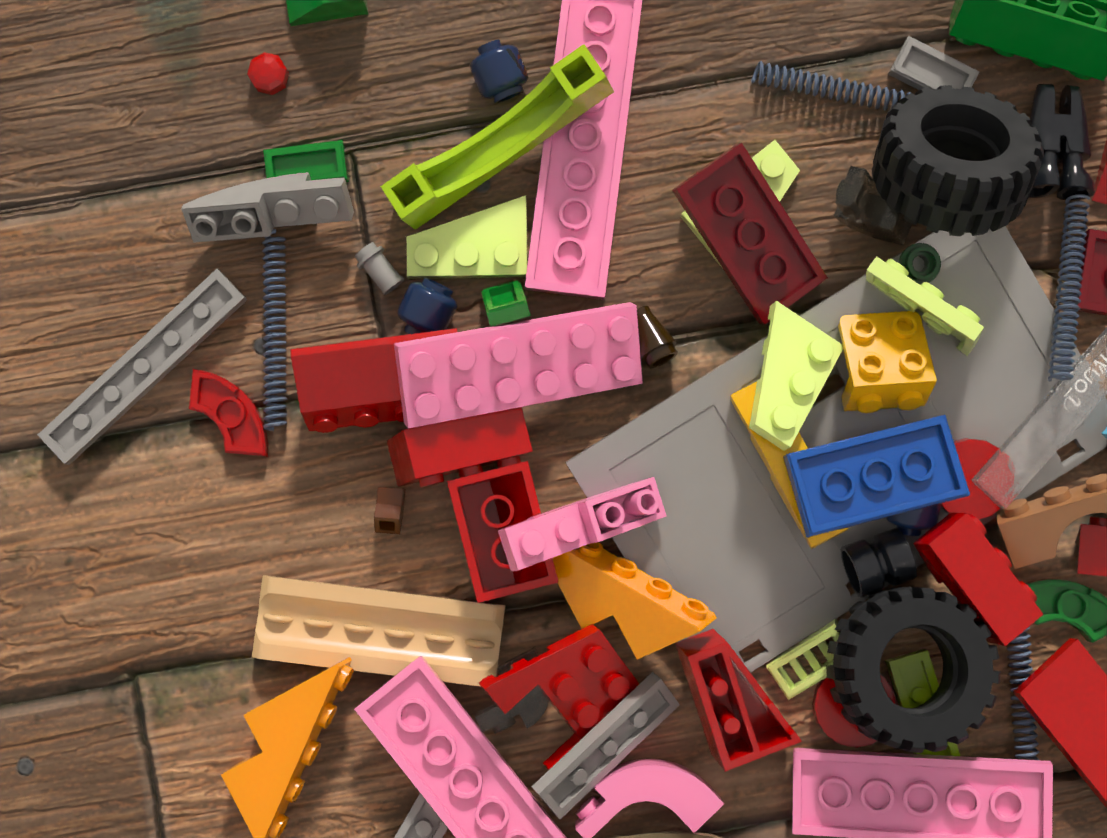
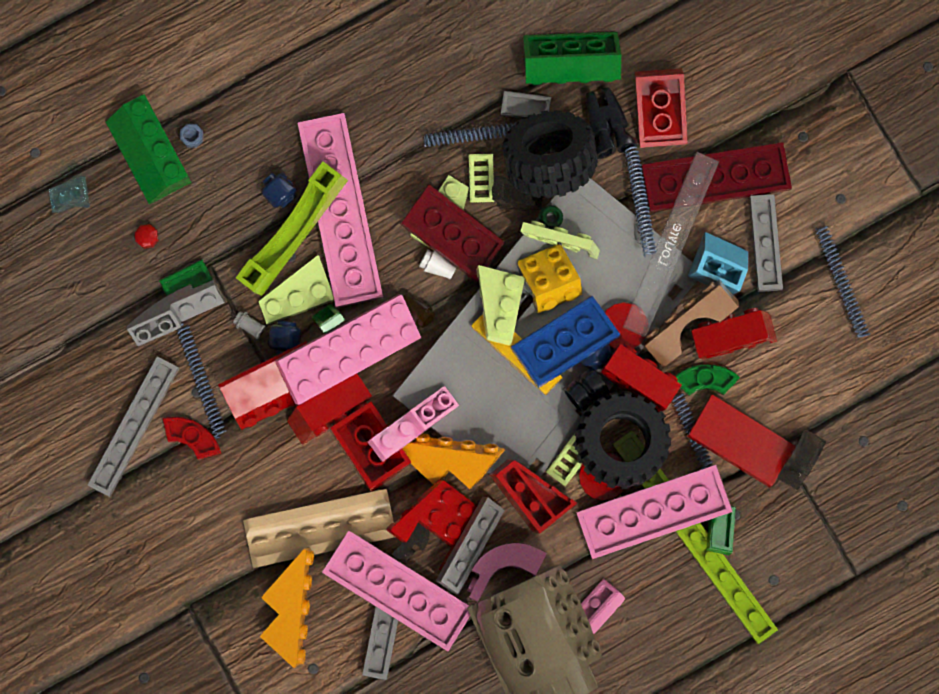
camera: 20 degrees left, 5 degrees down
(389, 510) = (302, 458): reddish brown piece -> none
(707, 276) = (436, 264): none -> white cone
(835, 129) = (472, 187): none -> yellowish green slope

